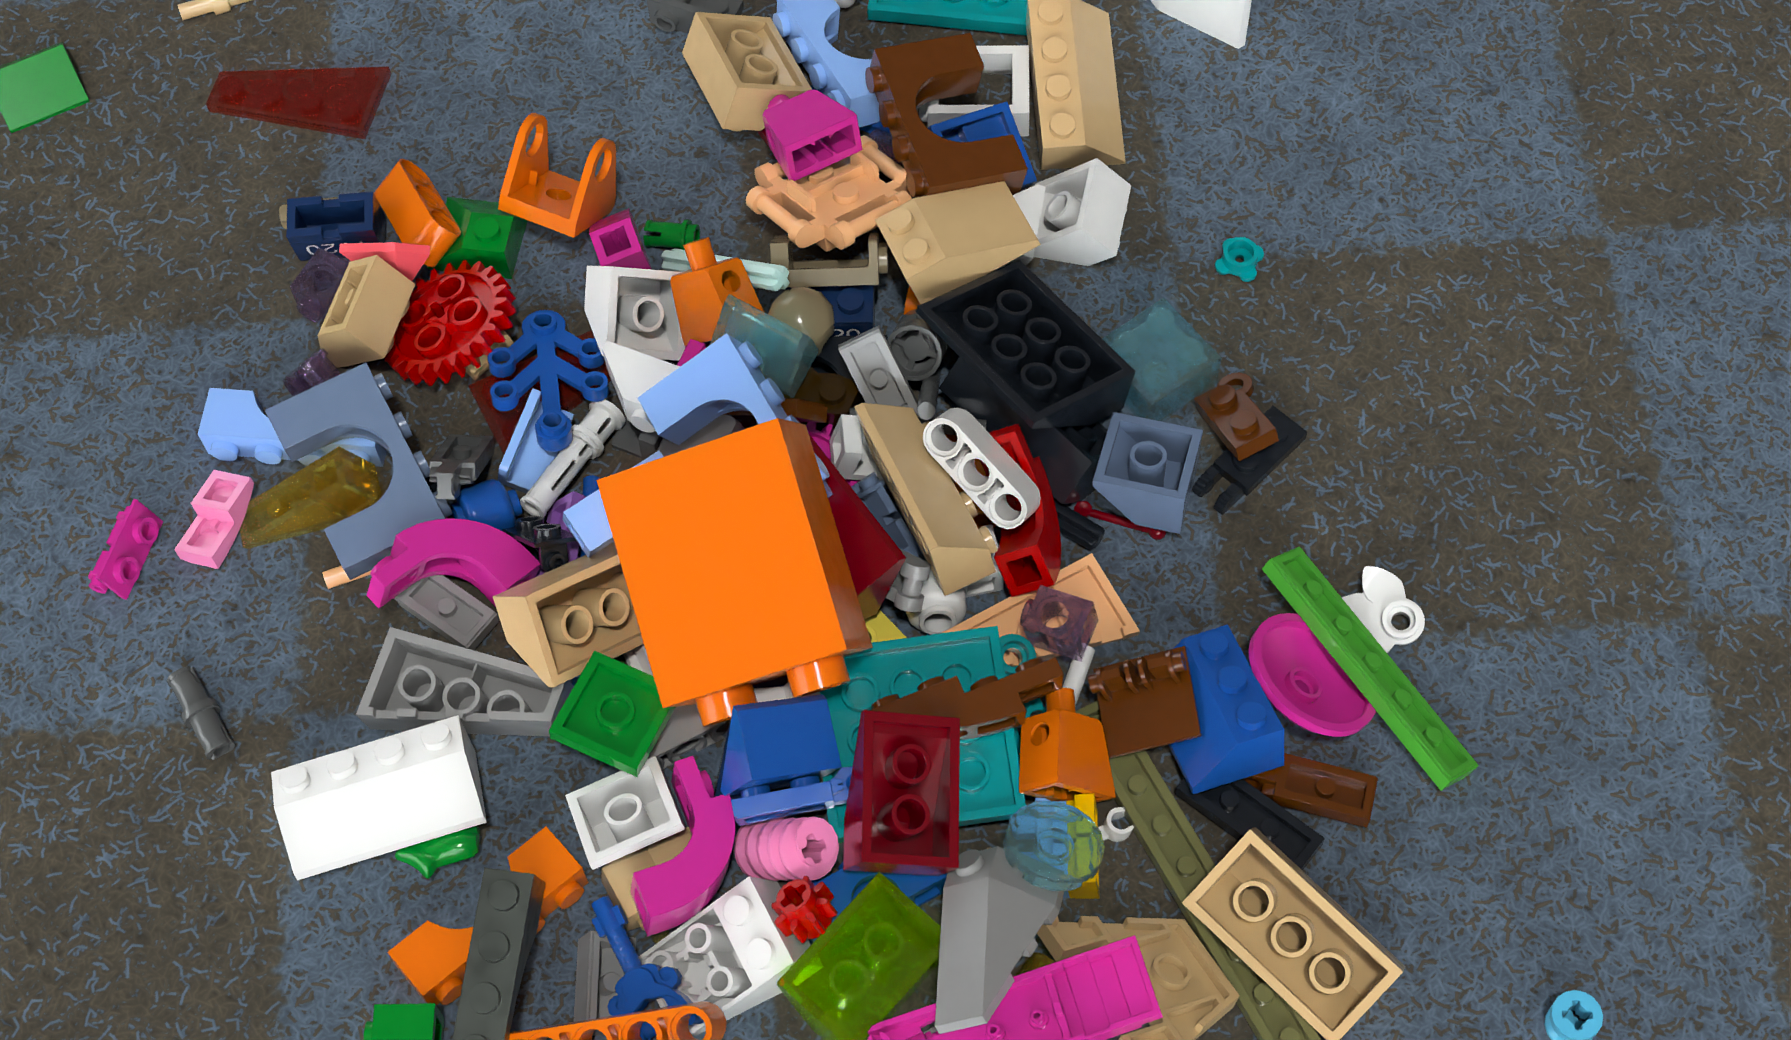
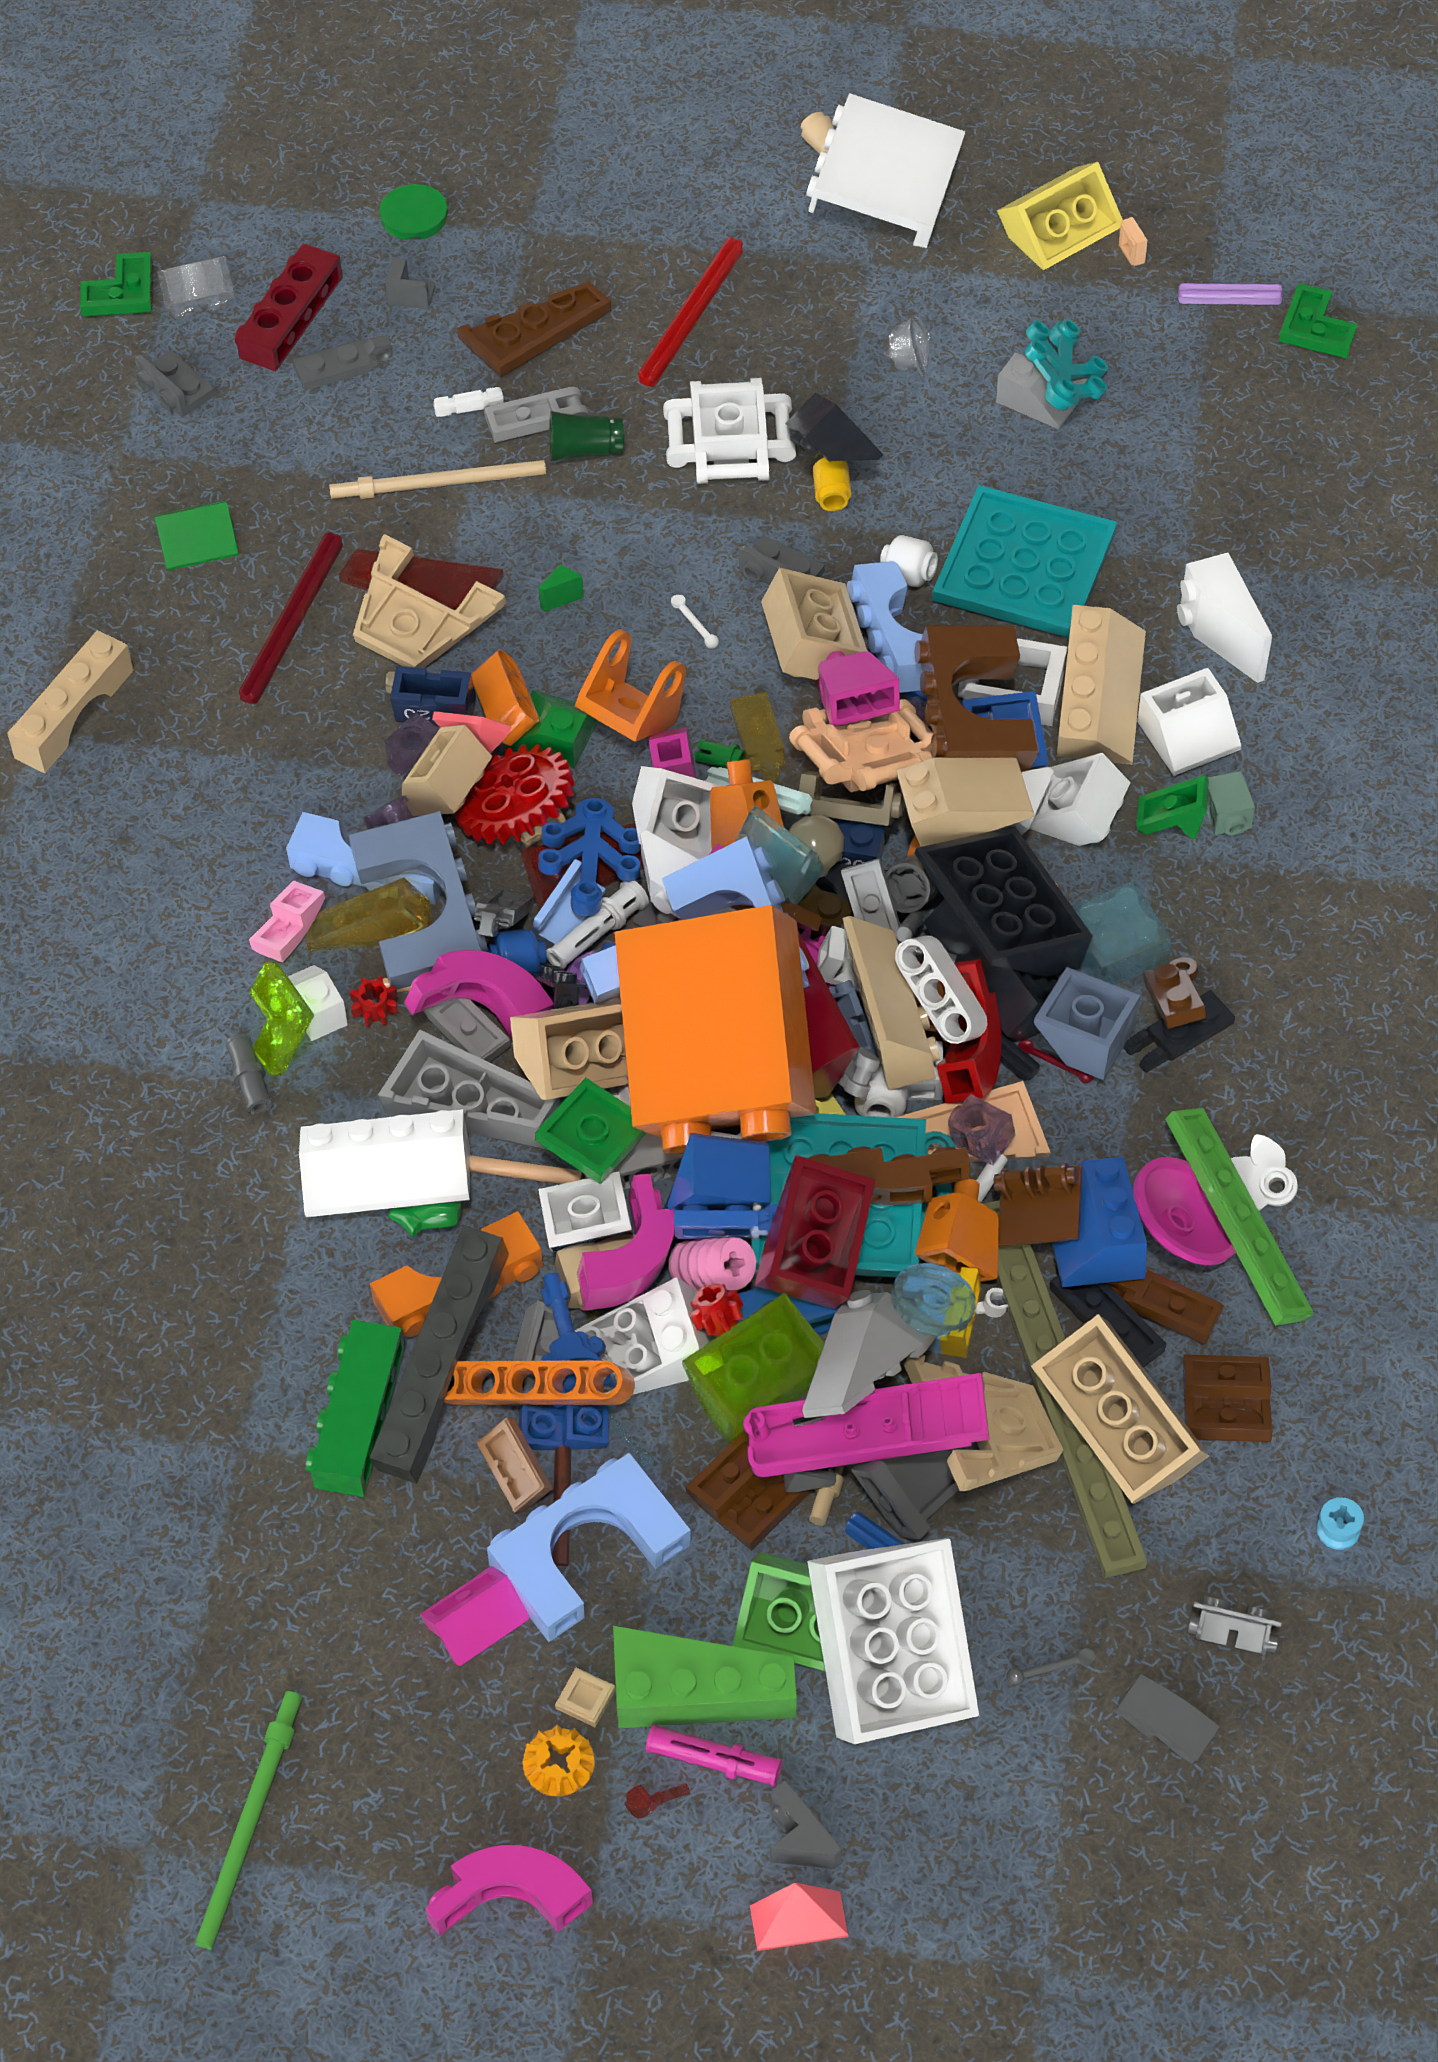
camera: 10 degrees right, 5 degrees down
(130, 545) = (212, 930): dark pink hinge -> none
(159, 165) = (290, 618): none -> dark red axle
(231, 638) = (286, 1017): none -> clear neon green plate
(263, 609) = (322, 999): none -> white slope
(294, 147) = (409, 624): none -> tan wing
(328, 584) = (377, 991): none -> red gear
(457, 77) = (560, 588): none -> green slope
(543, 769) = (523, 1170): none -> light nougat bar
(591, 69) = (679, 601): none -> white hinge
(710, 204) = (759, 734): none -> clear yellow hinge
(1178, 105) = (1189, 721): none -> white slope
(1187, 202) = (1175, 805): none -> green slope
(1241, 189) = (1229, 804): none -> sand green brick
(1242, 248) = (1213, 853): teal plate -> none
(1401, 868) = (1227, 1397): none -> reddish brown slope

